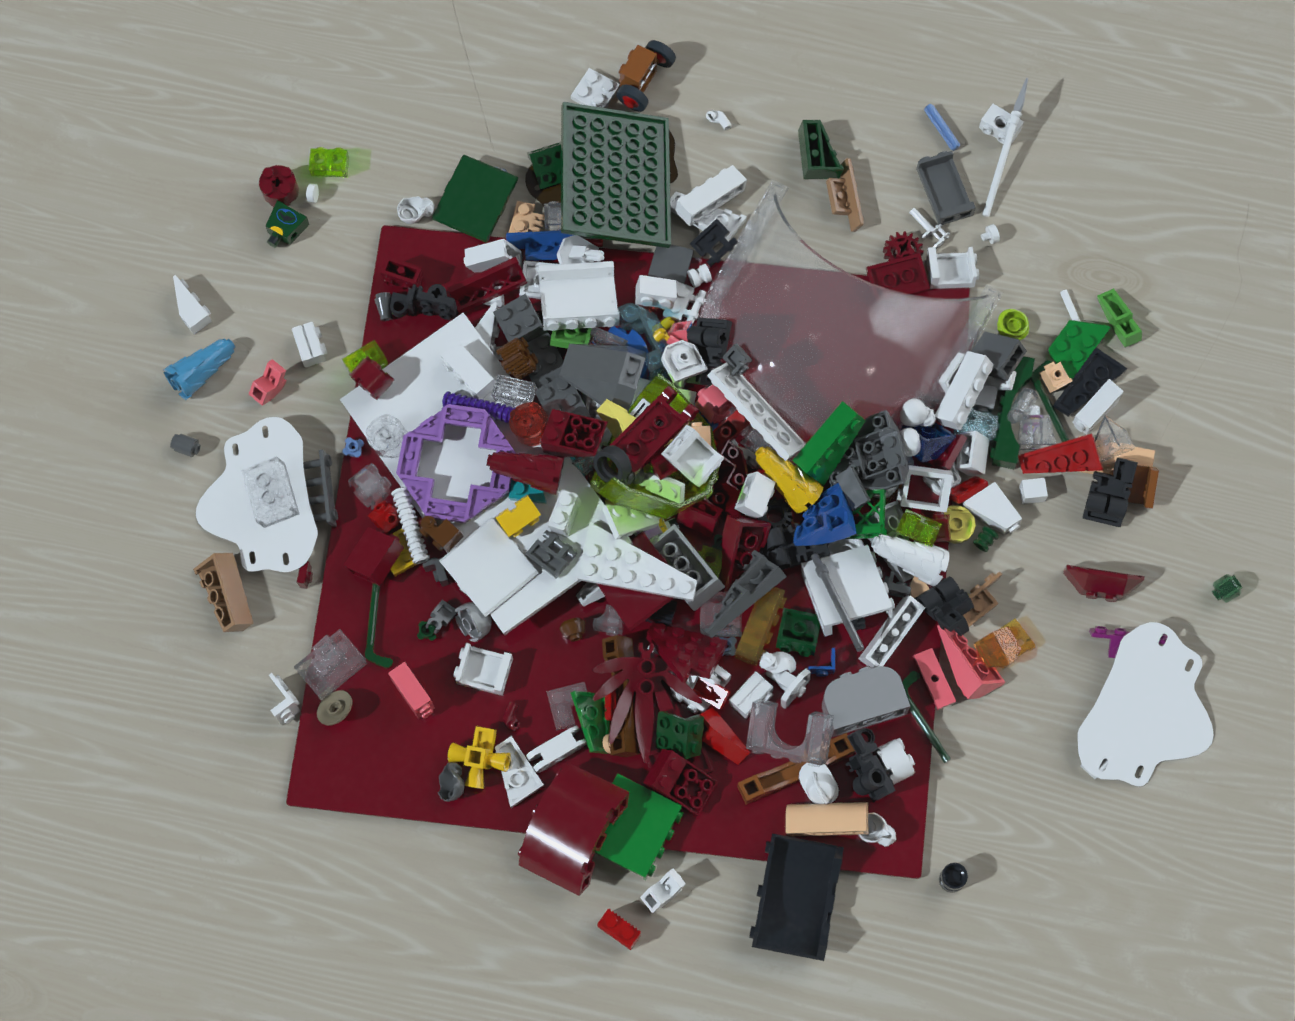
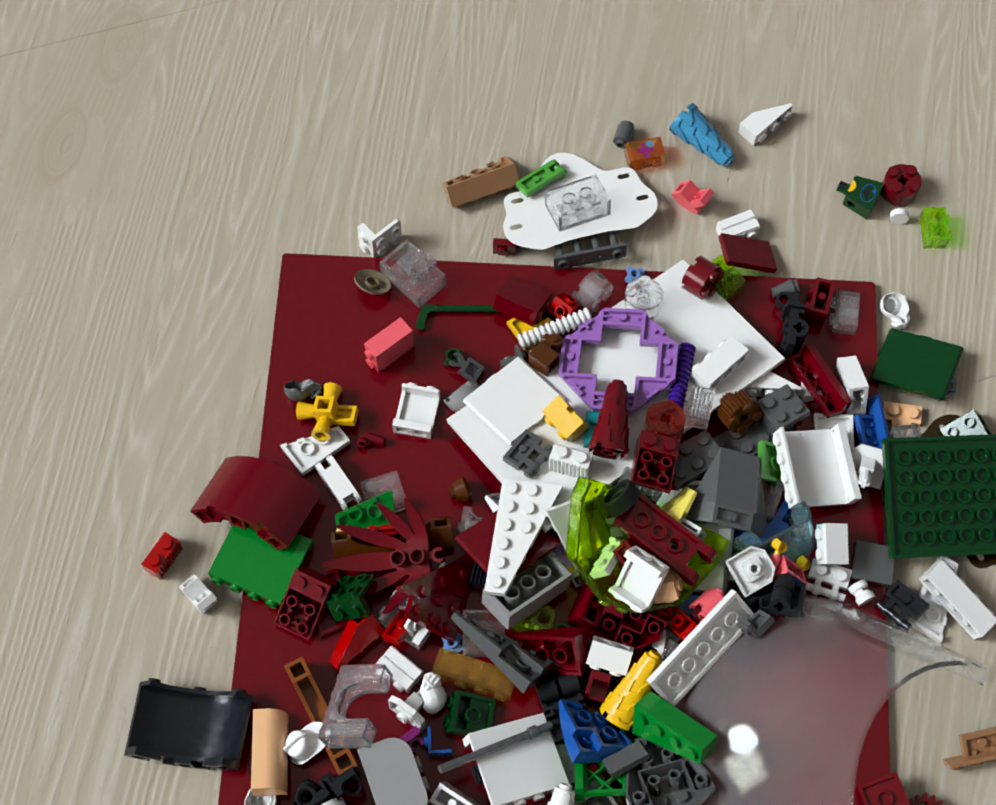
camera: 85 degrees right, 5 degrees down
(211, 426) = (644, 153): none -> clear orange brick
(230, 531) = (540, 178): none -> bright green plate
(341, 336) = (747, 253): none -> dark red tile
(416, 253) = (845, 312): none -> clear brick
(778, 512) = (597, 686): none -> dark red panel
(815, 687) = (411, 736): none -> magenta tile

